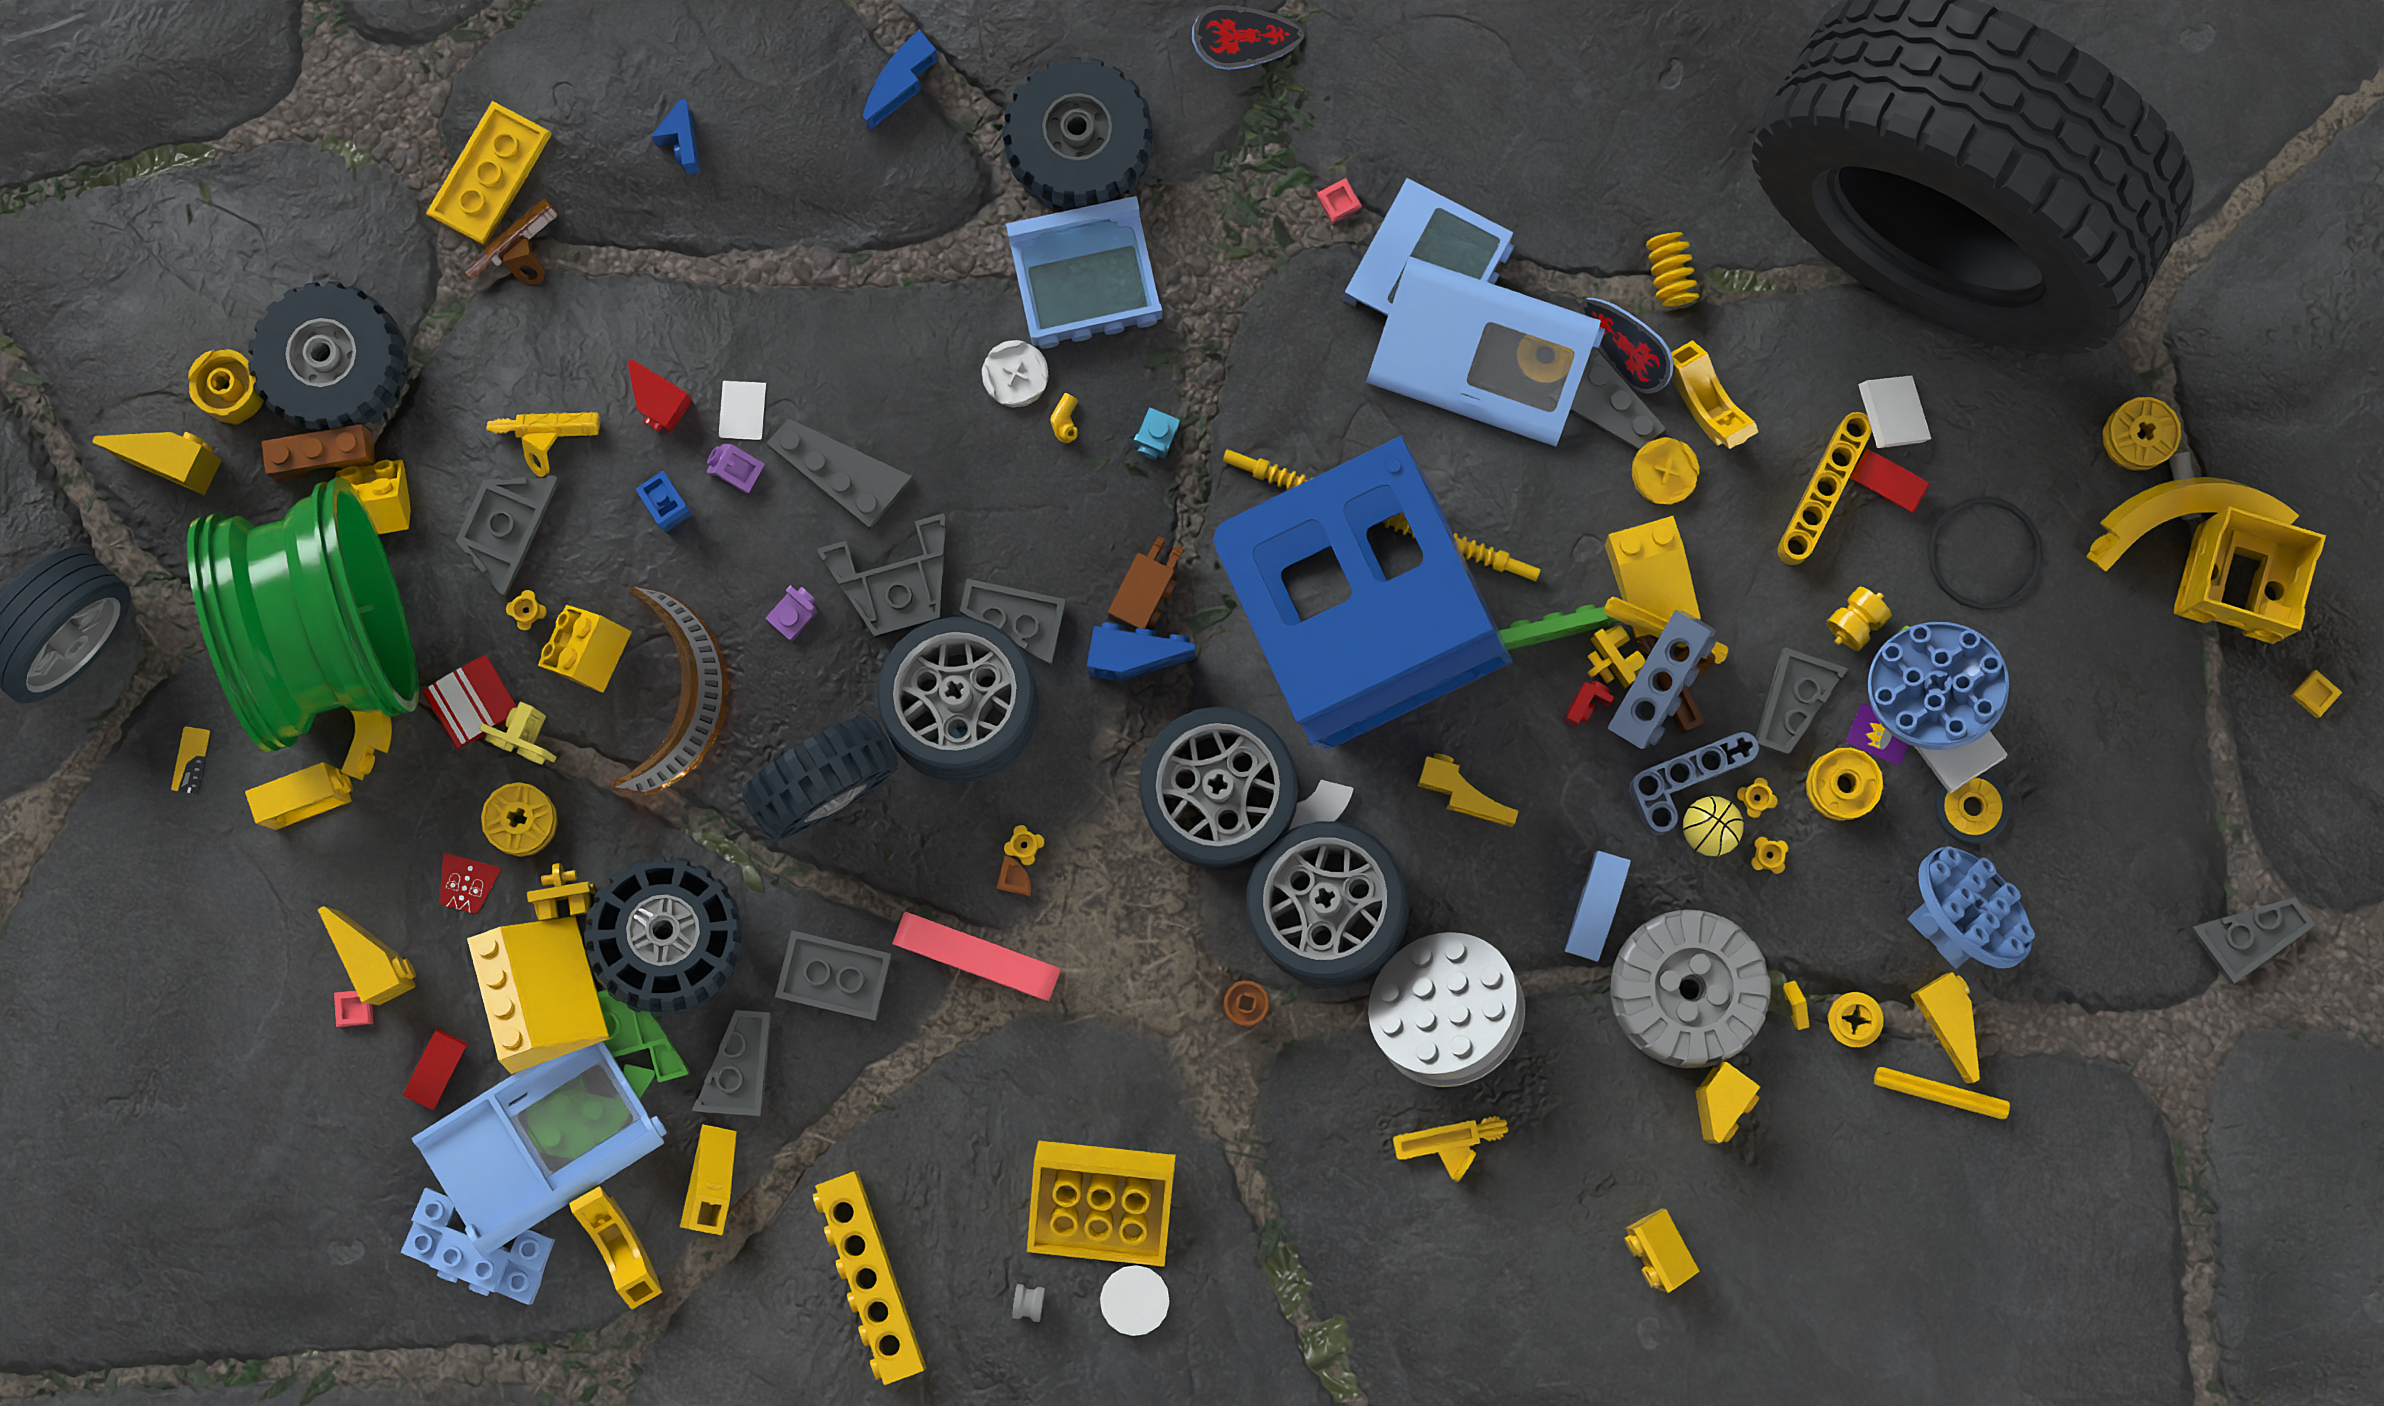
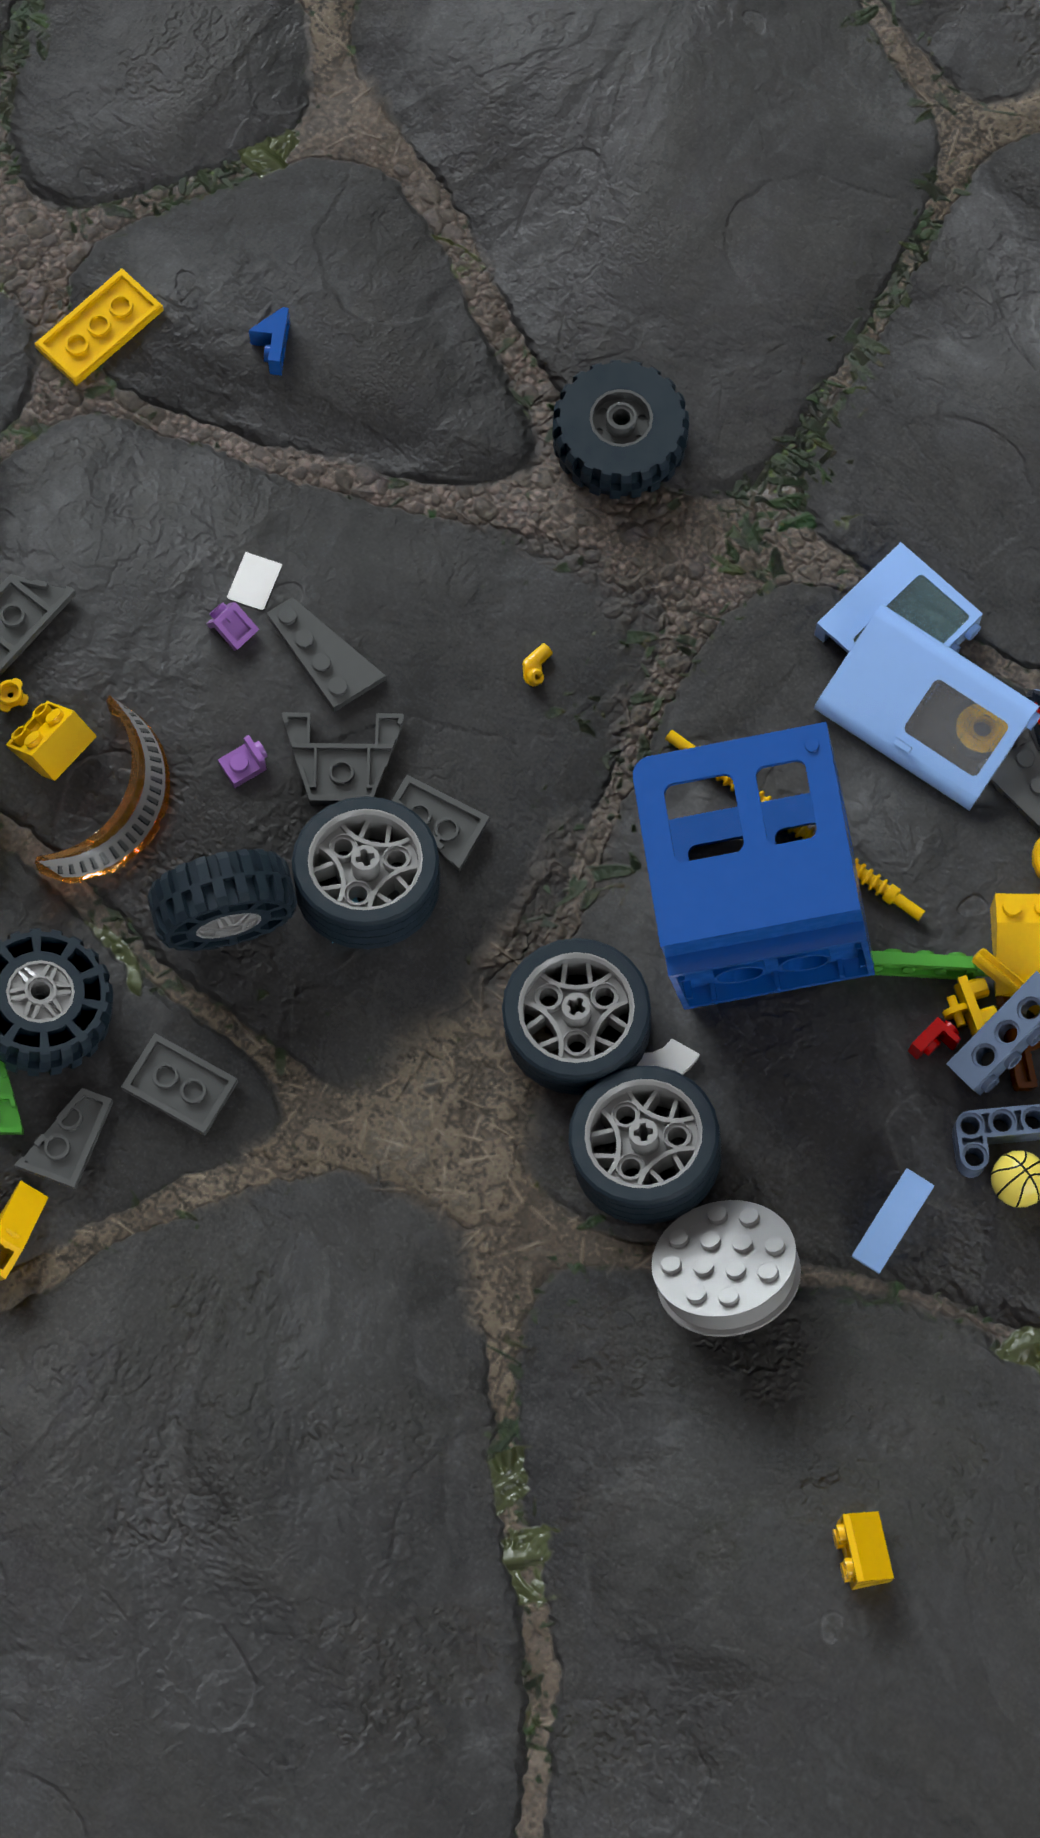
camera: 15 degrees right, 10 degrees down
(514, 245) = (101, 391): reddish brown piece -> none
(541, 431) = (72, 548): yellow piece -> none
(657, 399) = (183, 549): red slope -> none
(663, 501) = (161, 637): blue slope -> none
(899, 79) = (478, 343): blue slope -> none
(909, 1358) = (137, 1444): yellow brick -> none
(976, 956) = (313, 1104): coral beam -> none
(1014, 878) = (368, 1046): dark orange tile -> none
(1015, 373) = (503, 615): white tile -> none
(1026, 854) = (386, 1010): yellow plate -> none
(1028, 1302) = (263, 1426): light grey wheel -> none
(1084, 272) = (591, 546): clear light blue panel -> none
(1100, 1203) = (357, 1356): yellow slope -> none
(1128, 655) = (536, 878): blue slope -> none
(1134, 1300) = (361, 1454): white tile -> none
(1145, 588) = (562, 828): dark orange hinge -> none
(1156, 434) = (613, 700): medium azure bracket -> none
(1242, 36) = (790, 387): shield -> none
(1246, 1003) = (544, 1214): dark orange wheel -> none
(1339, 201) = (835, 549): coral tile -> none
(1443, 777) = (784, 1067): yellow slope -> none
(1450, 1142) = (696, 1396): yellow piece -> none
(1721, 1101) = (961, 1423): yellow slope -> none
(1728, 983) = (978, 1289): light grey wheel -> none

